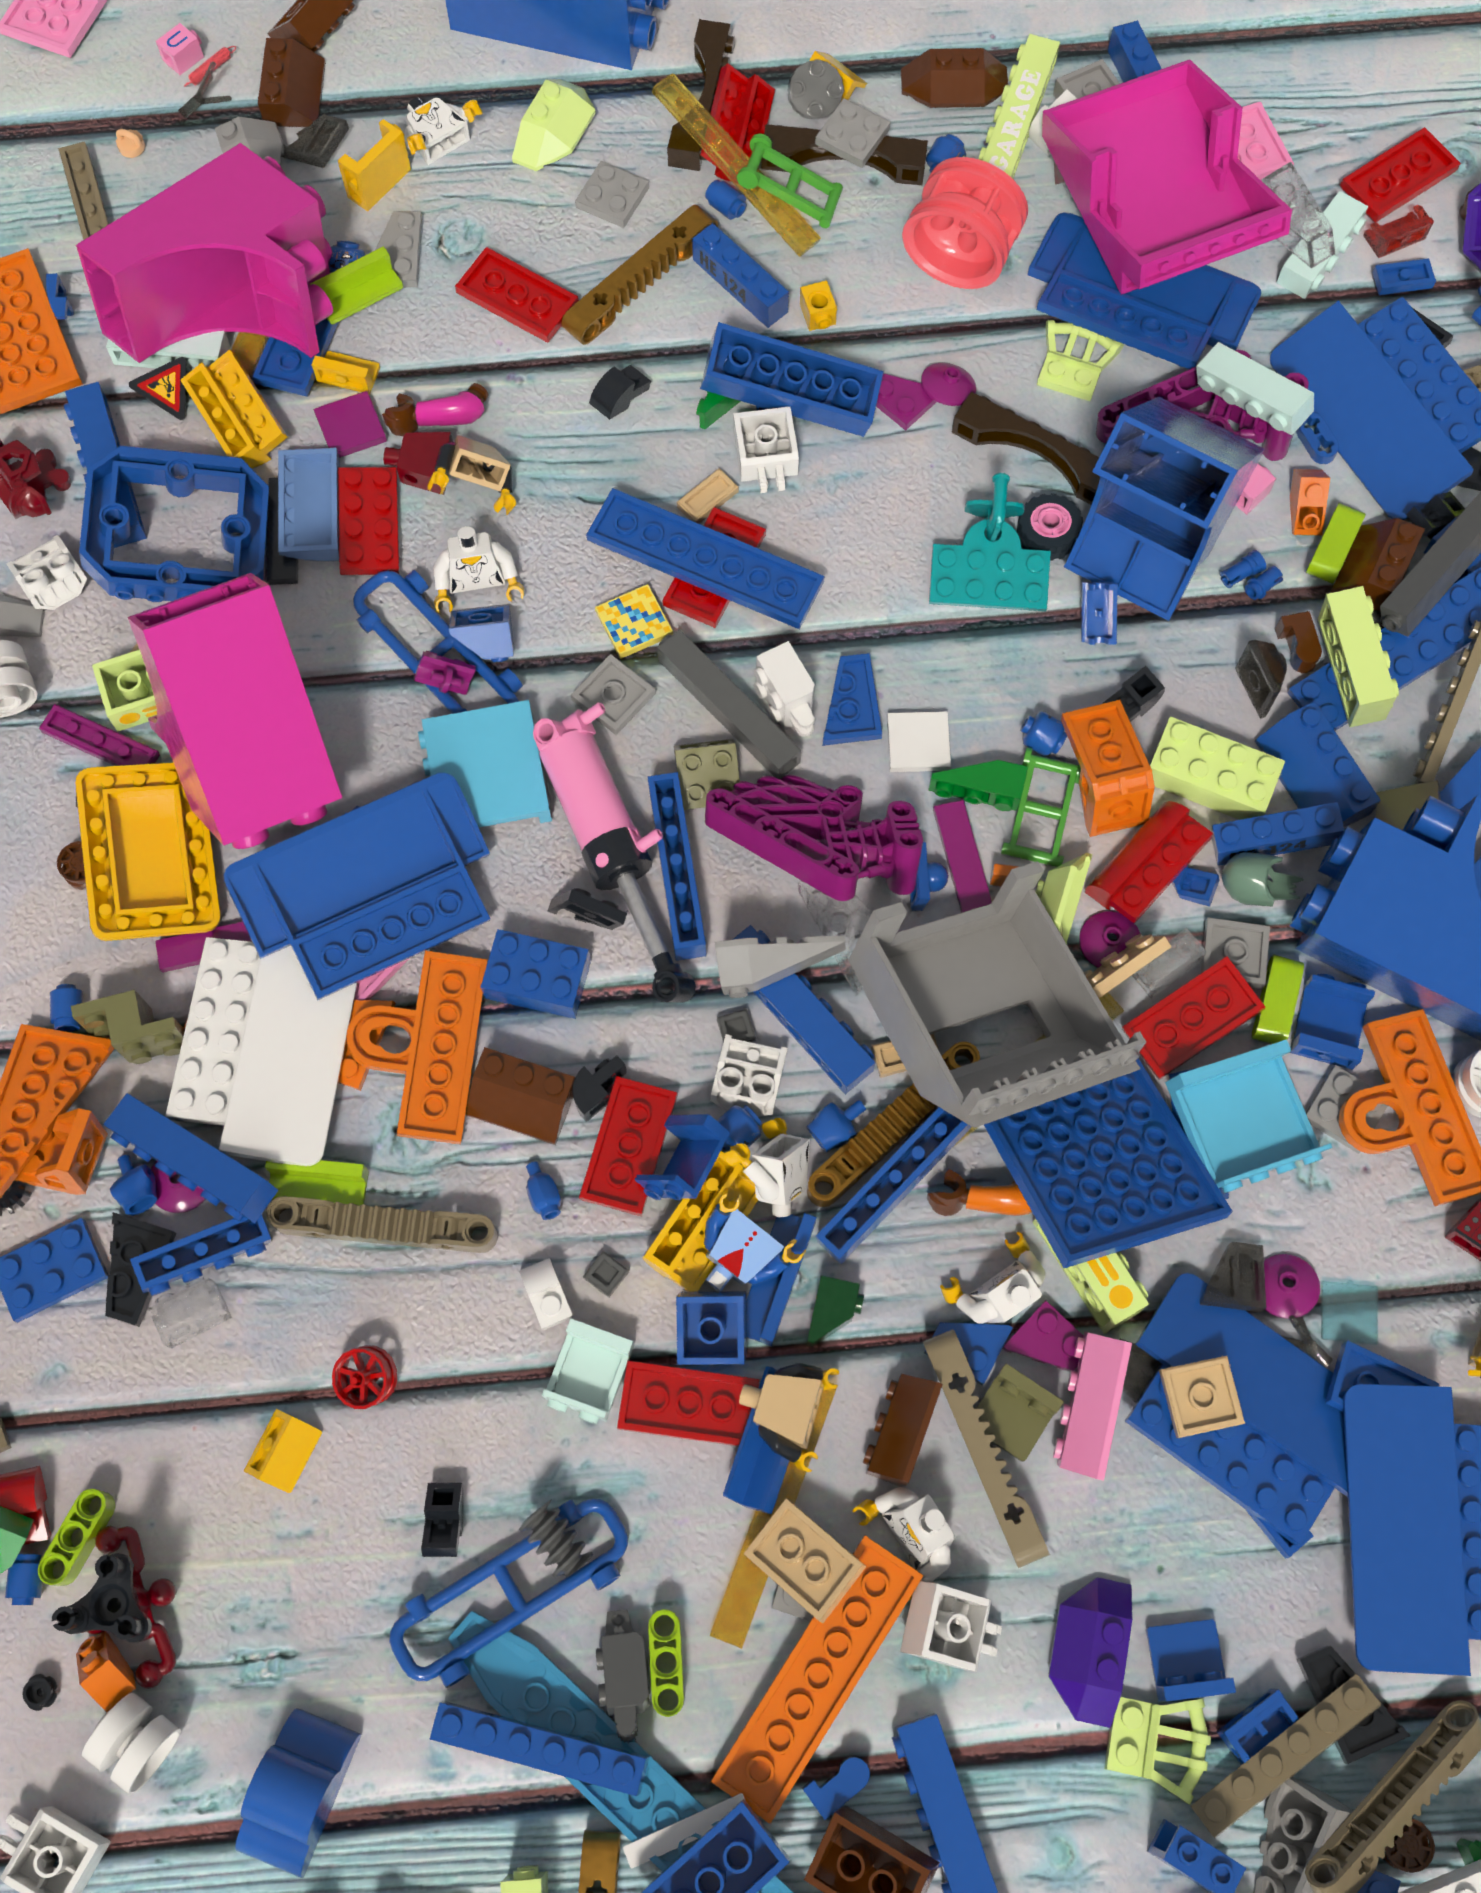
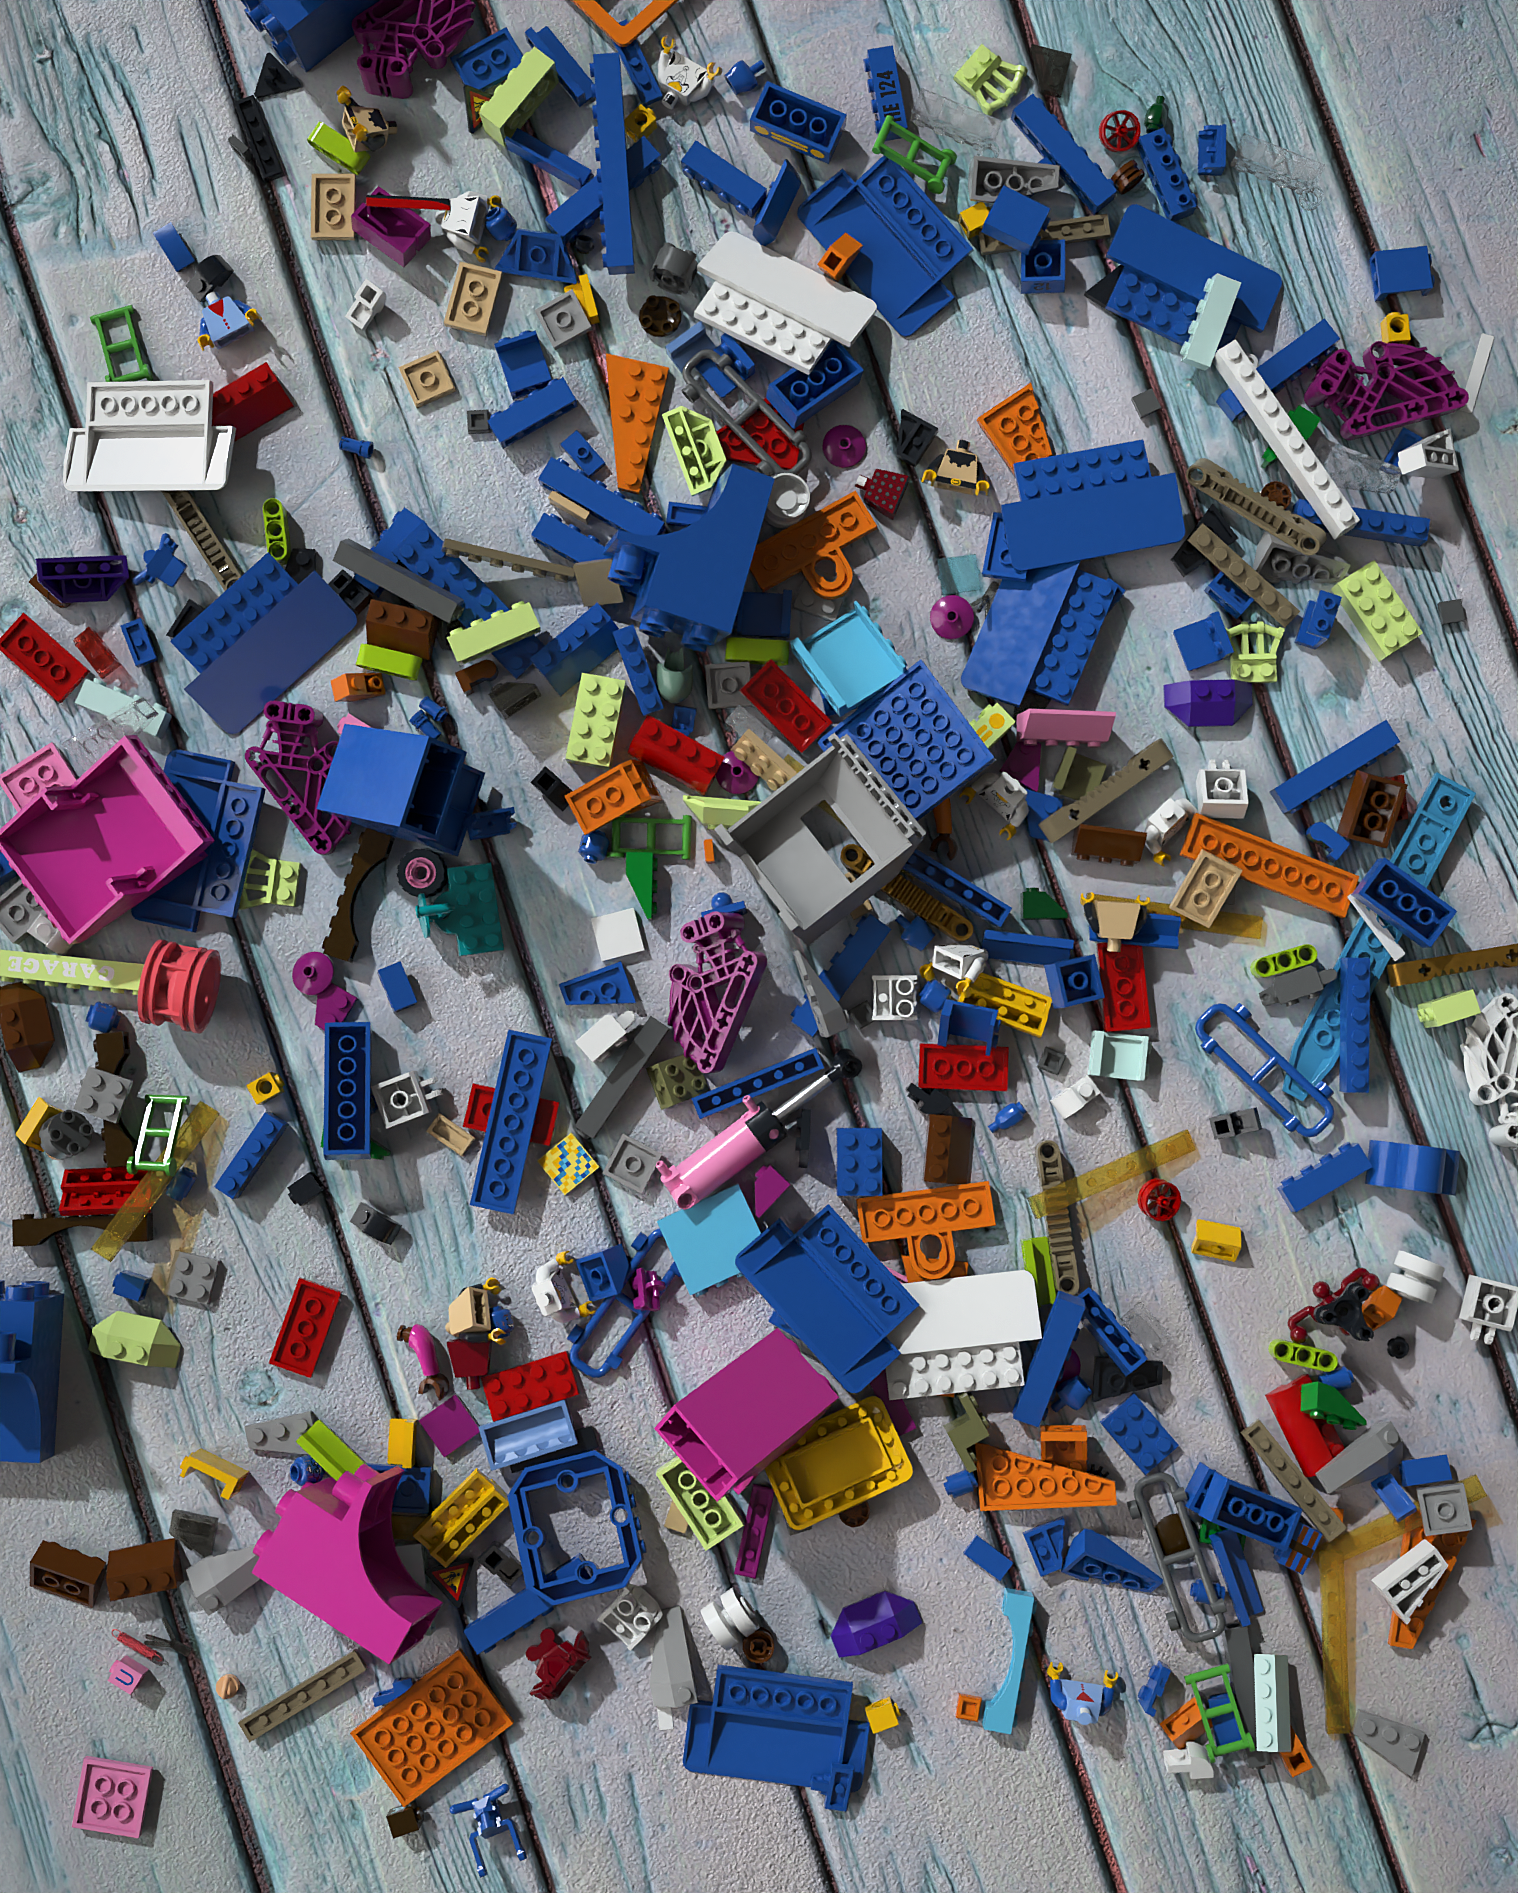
camera: 100 degrees left, 15 degrees up
(169, 434) = (501, 1562): none -> black brick
(325, 1641) = (1324, 1177): none -> blue brick
(421, 1316) = (1111, 1174): none -> clear yellow tile
(437, 127) = (162, 1436): white torso -> none
(457, 498) = (501, 1319): none -> blue head
(532, 838) = (768, 1187): none -> magenta slope
(555, 1540) = (1231, 1046): dark grey piece -> none
(599, 306) = (318, 1265): pearl gold gear -> none
(620, 130) = (131, 1285): none -> blue brick
(683, 325) = (305, 1189): none -> black brick
(742, 1248) = (1018, 972): torso -> none
(909, 467) = (397, 987): none -> blue hinge
(962, 855) = (702, 884): magenta tile -> none
(1201, 1397) = (1045, 659): tan tile -> none
(1238, 1279) = (957, 648): clear smoke wing -> none
(1255, 388) = (287, 740): light aqua brick -> none
(1321, 436) = (295, 684): blue beam -> none

